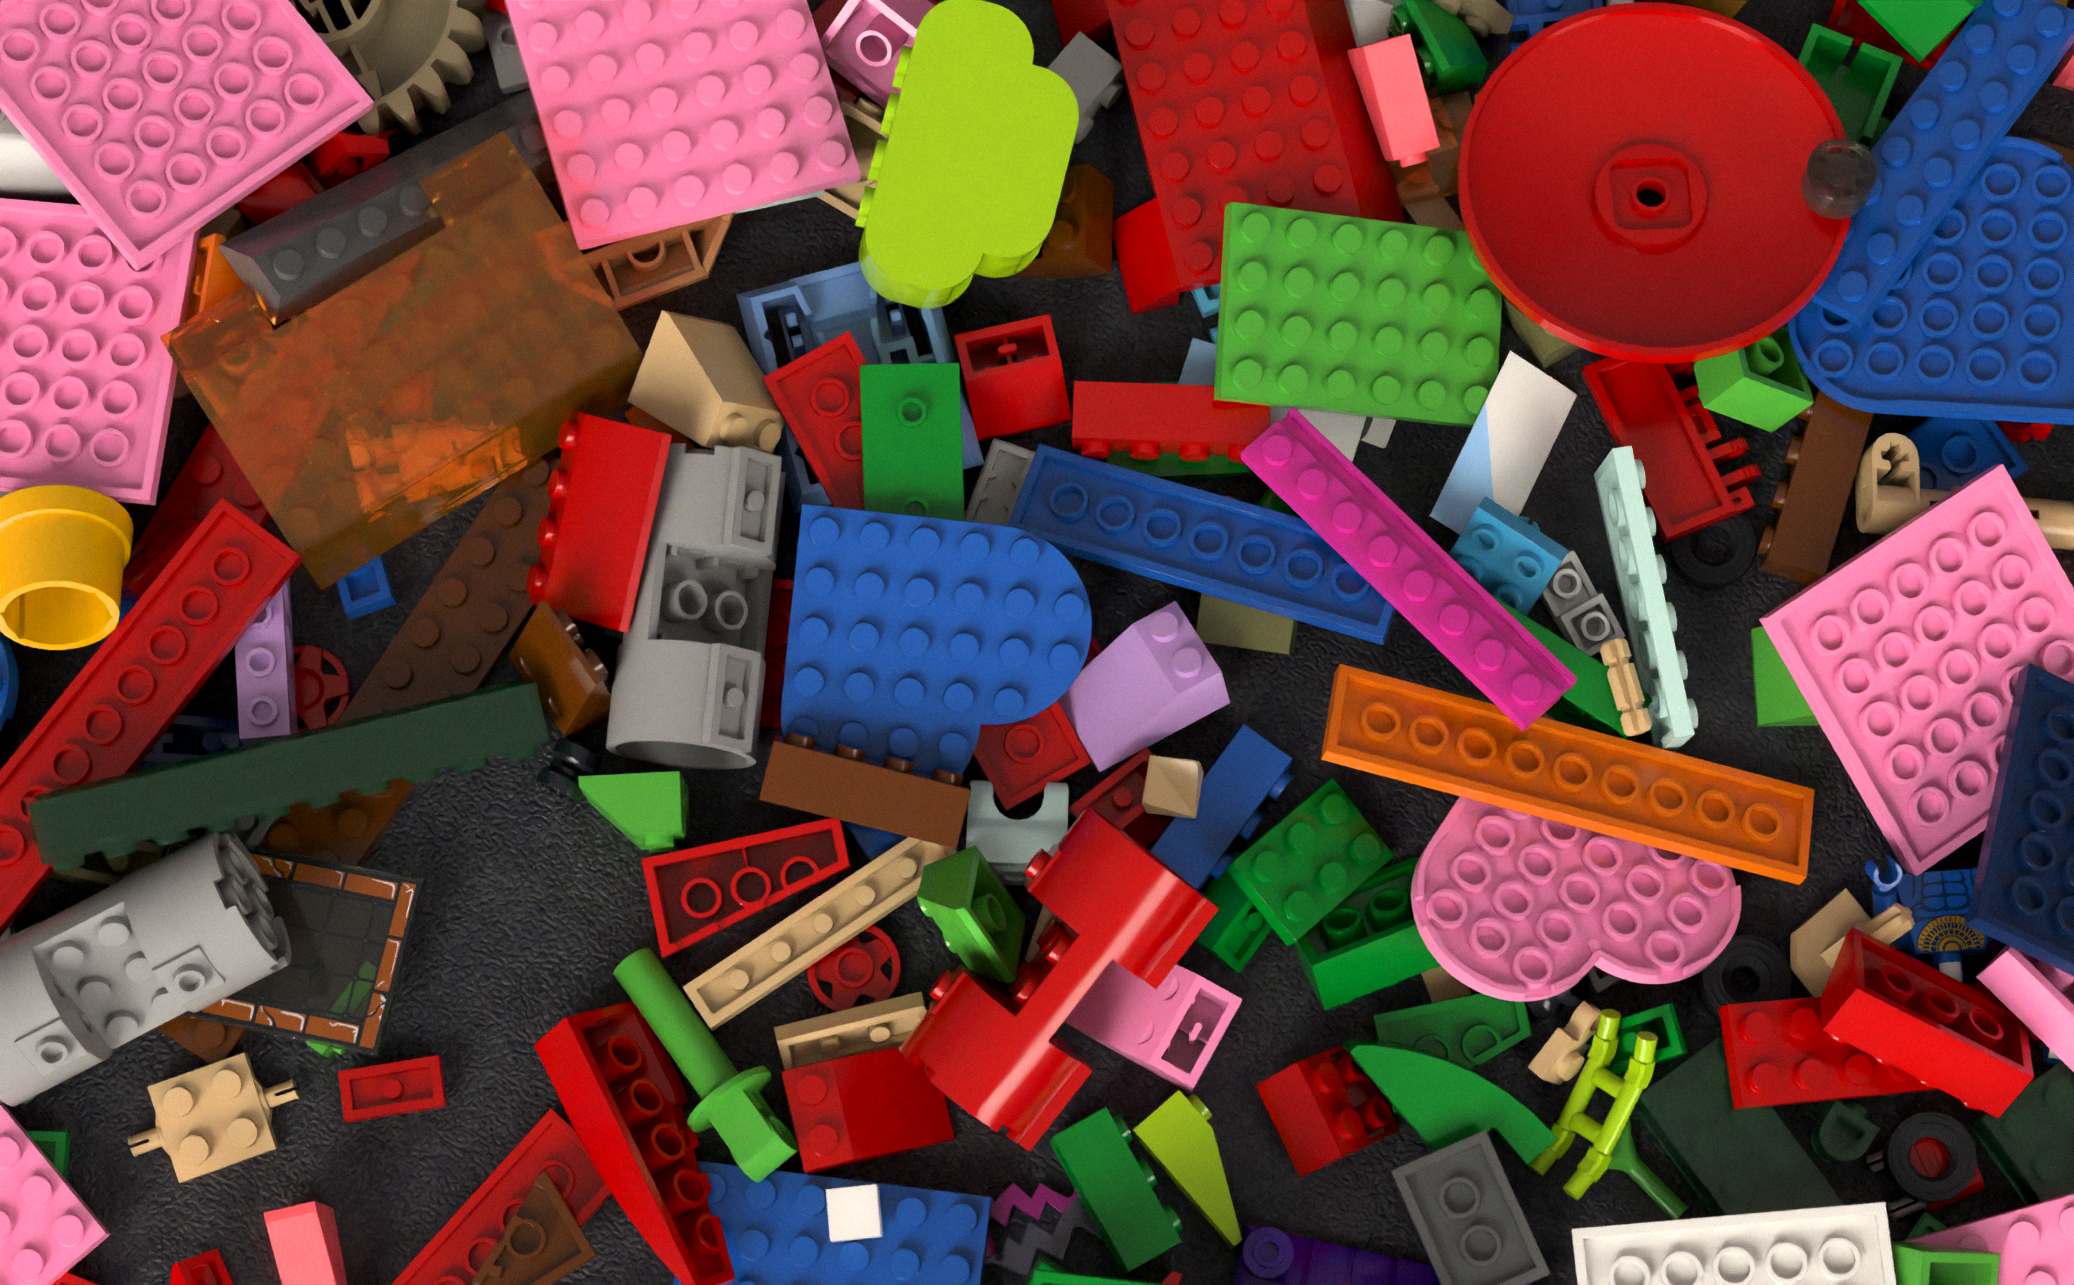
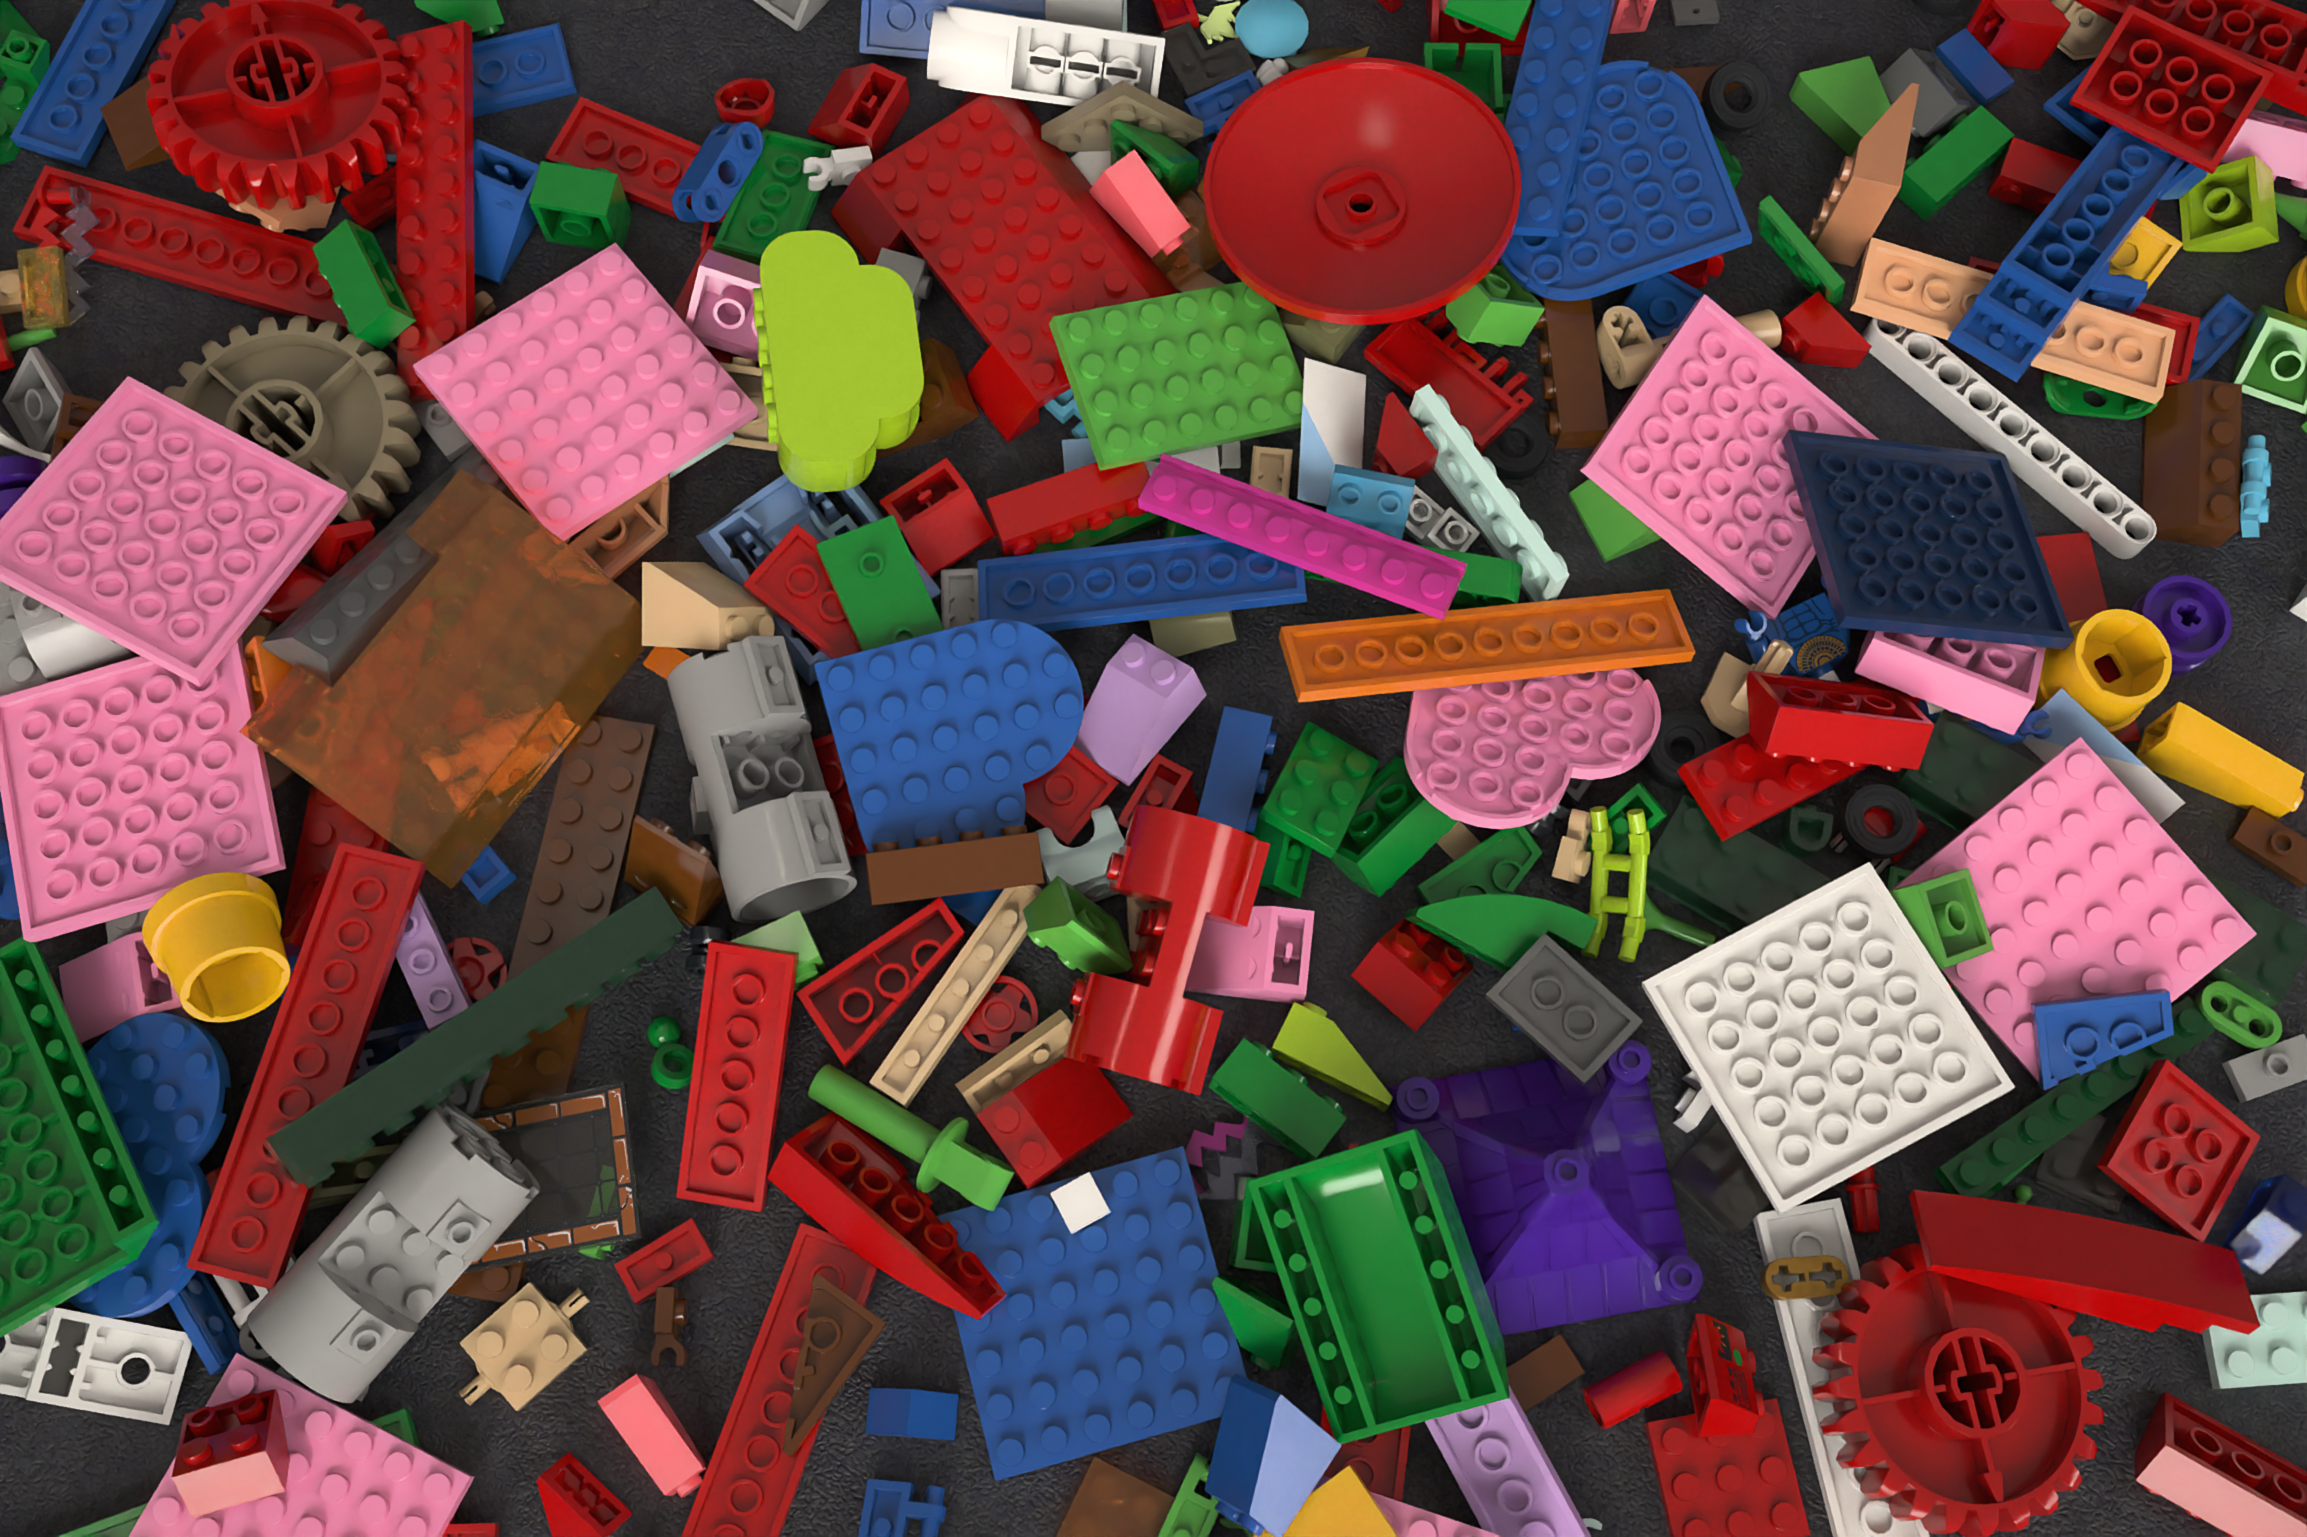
camera: 25 degrees left, 5 degrees down
(374, 1150) = (670, 1313): none -> reddish brown plate
(487, 841) = (664, 1035): none -> green plate
(544, 922) = (737, 1075): none -> red plate
(598, 519) = (656, 739): red slope -> none
(1172, 787) = (1191, 772): tan slope -> none
(1413, 474) = (1271, 469): none -> tan plate
(1577, 500) = (1401, 444): none -> red slope
(1625, 686) = (1501, 562): tan axle -> none
(1837, 180) = (1497, 135): clear smoke wheel -> none

